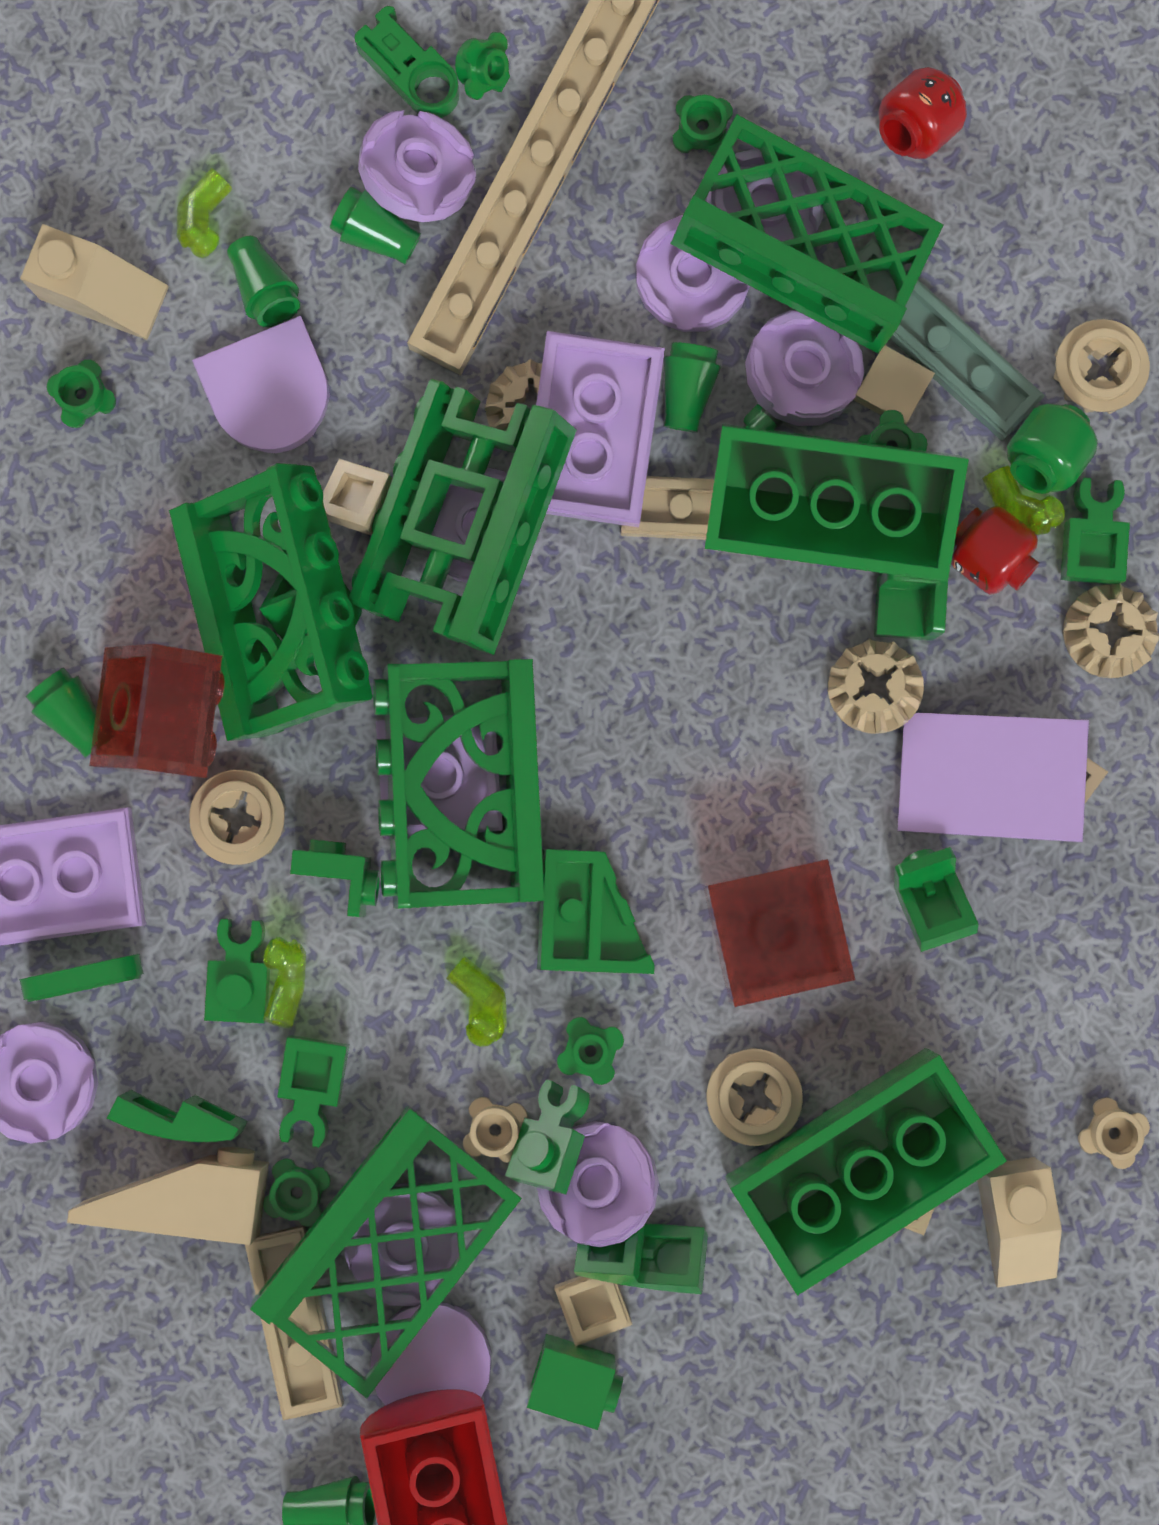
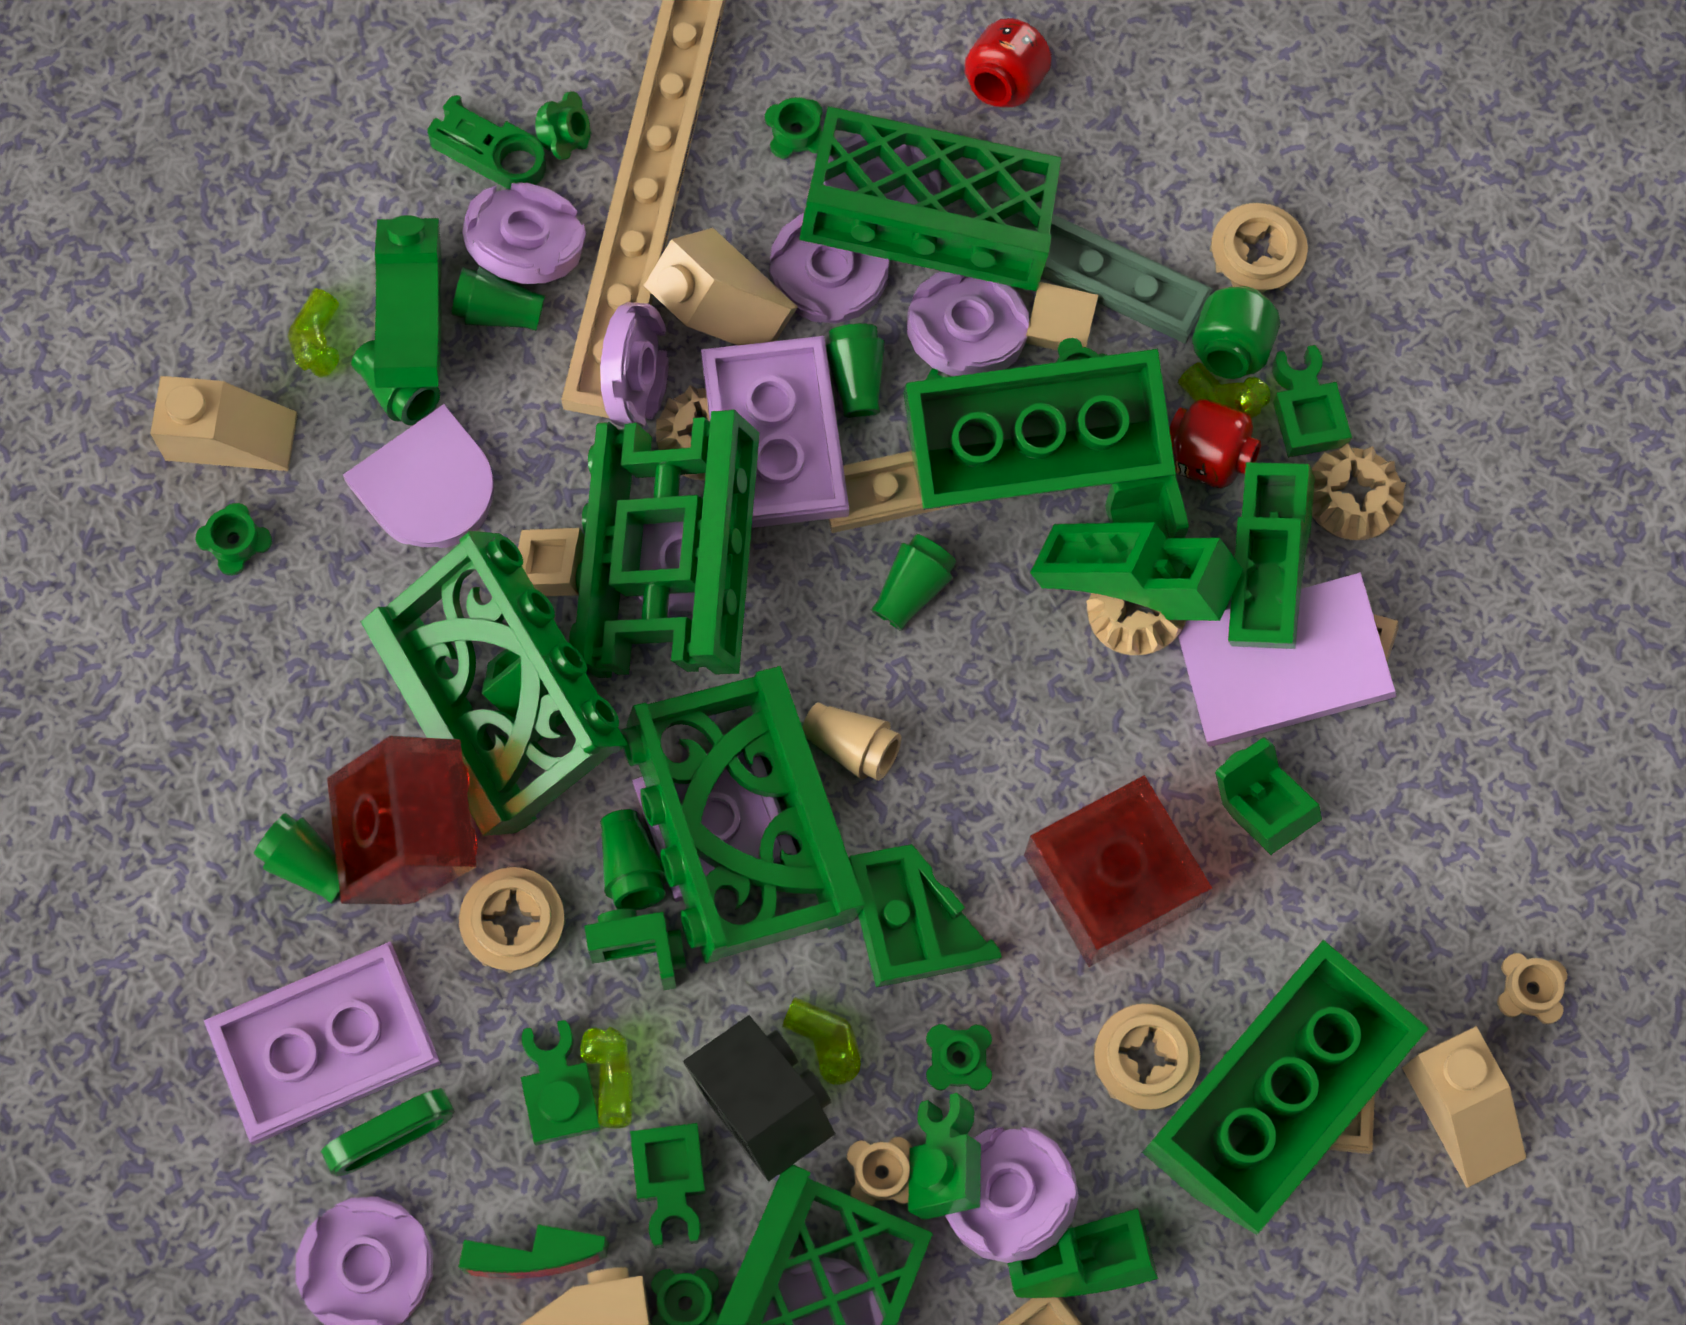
camera: 20 degrees left, 15 degrees down
(289, 209) = (407, 302): none -> green slope
(352, 795) = (630, 862): none -> green cone
(403, 1045) = (761, 1095): none -> pearl dark grey brick
(479, 330) = (632, 365): none -> lavender tile
(581, 275) = (719, 290): none -> tan slope
(583, 741) = (854, 740): none -> tan cone
(678, 606) = (914, 579): none -> green cone
(887, 657) = (1140, 566): none -> green slope
(1012, 677) = (1272, 554): none -> green slope

